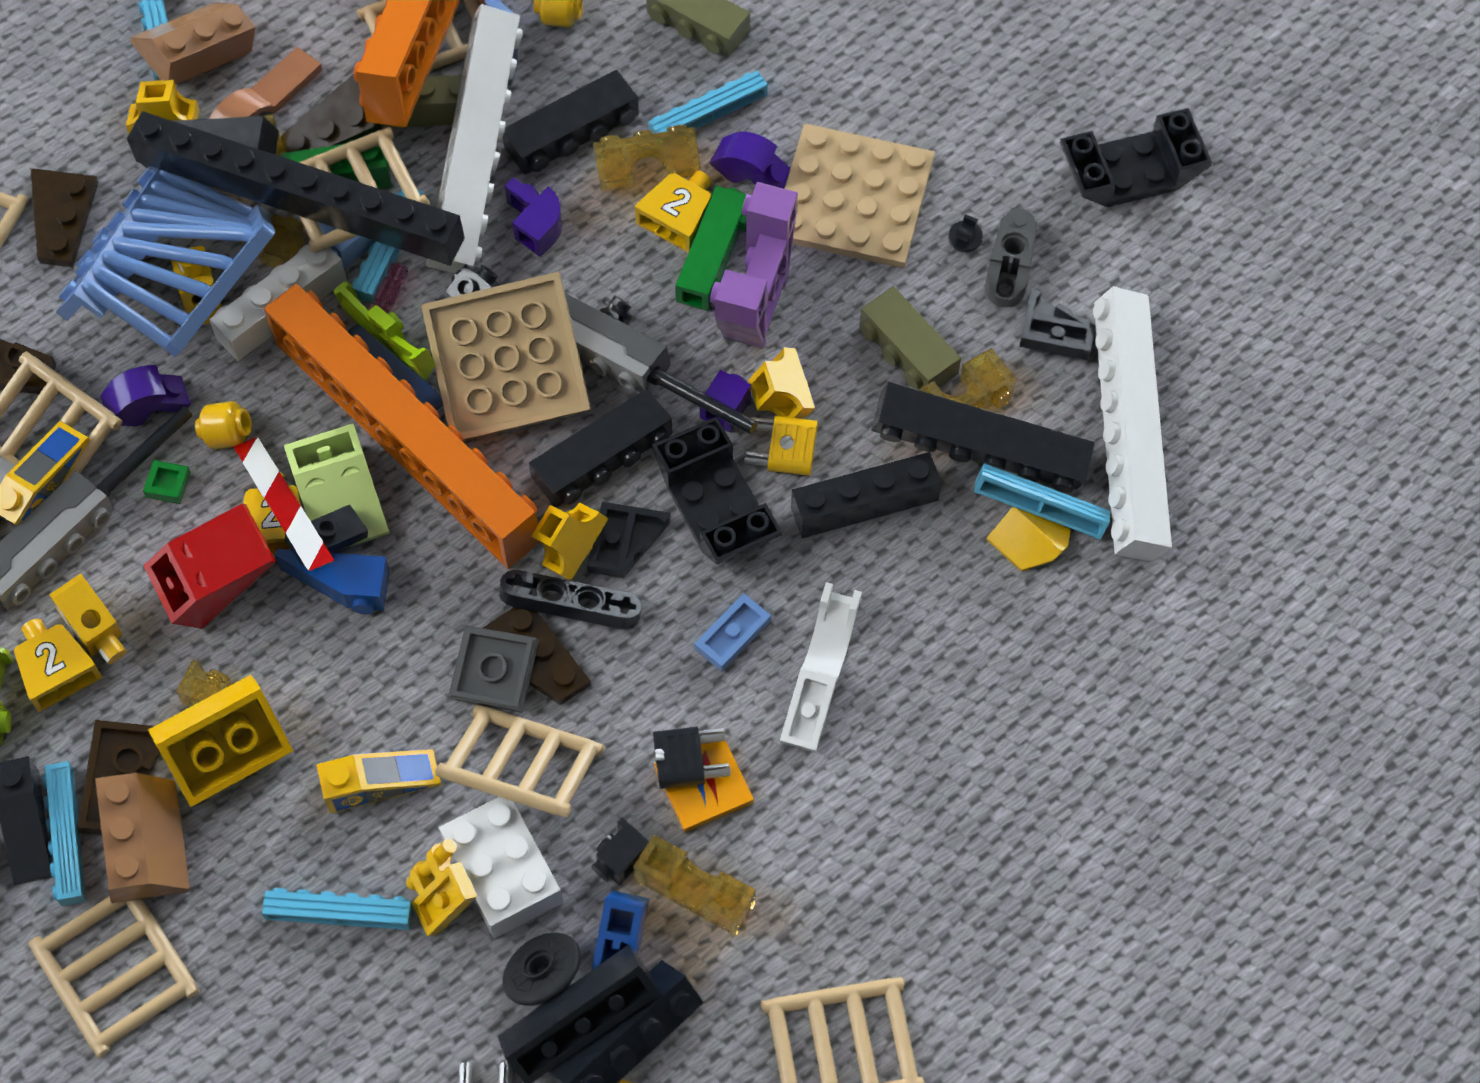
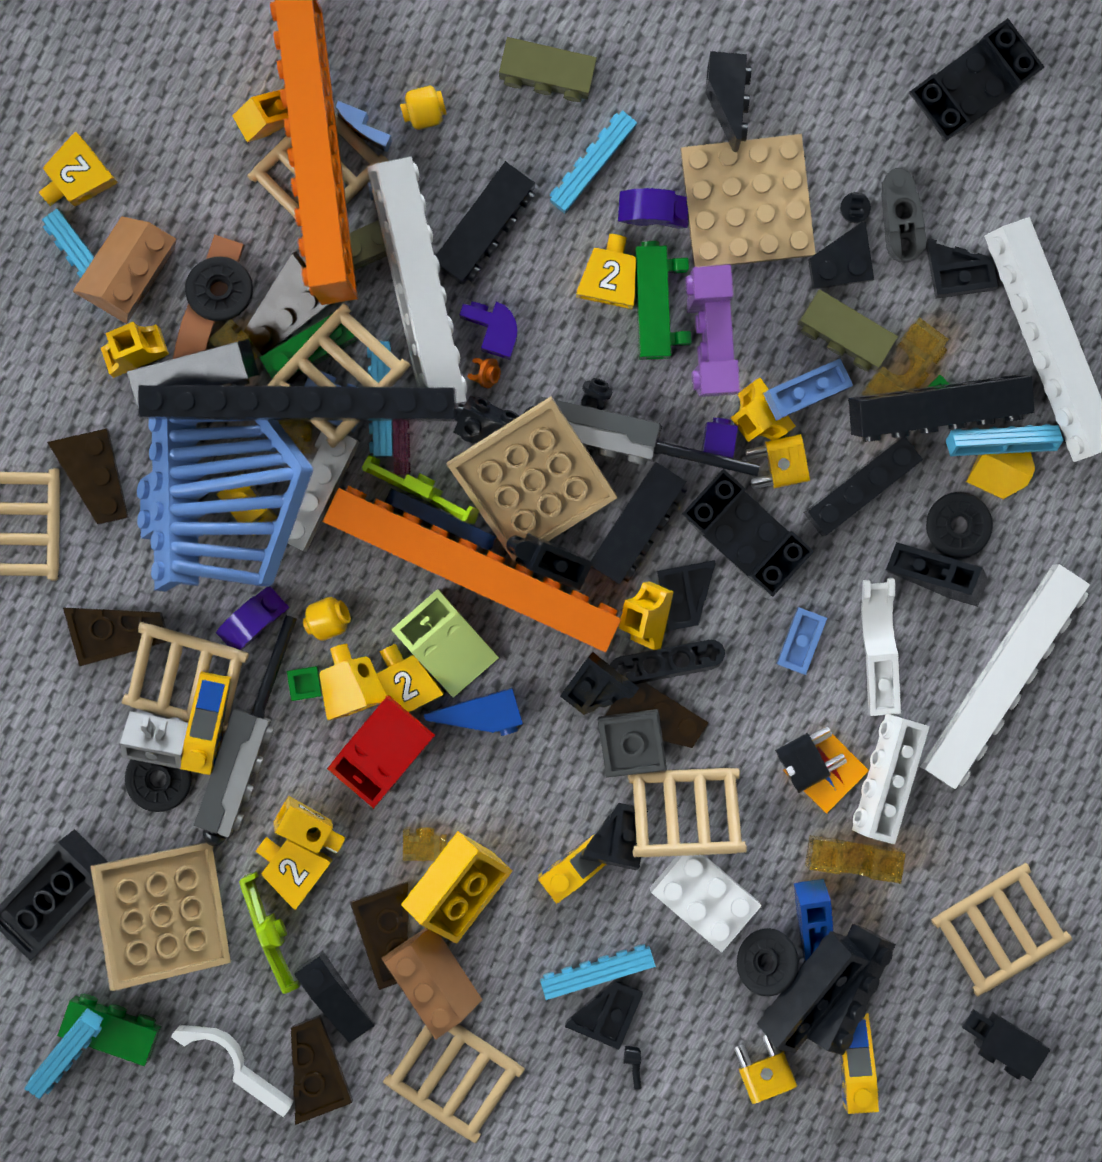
camera: 20 degrees left, 25 degrees up
(65, 838) = (368, 992): medium azure piece -> none
(210, 490) = (349, 684): none -> yellow torso
(283, 504) = (413, 677): sticker -> none
(290, 99) = (219, 270): none -> black wheel
(327, 962) = (607, 1014): none -> black wing
(333, 1026) = (632, 1056): none -> black hand
(337, 530) = (459, 690): black plate -> none
(418, 761) = (615, 840): none -> black wing
(444, 896) = (670, 938): yellow plate -> none
(479, 588) = (597, 686): none -> black wing
(487, 434) = (550, 560): none -> black brick
(509, 255) = (488, 373): none -> orange plate
(617, 156) = (540, 246): clear yellow arch -> none
(619, 853) = (788, 852): black brick -> none
(772, 809) = (890, 778): none -> white brick
(839, 376) = (808, 389): none -> medium blue plate
(872, 86) = (725, 91): none -> black slope
(921, 617) = (939, 573): none -> black slope
(933, 279) = (843, 261): none -> black wing
(951, 752) = (1005, 676): none -> white brick
(955, 598) = (978, 525): none -> black wheel

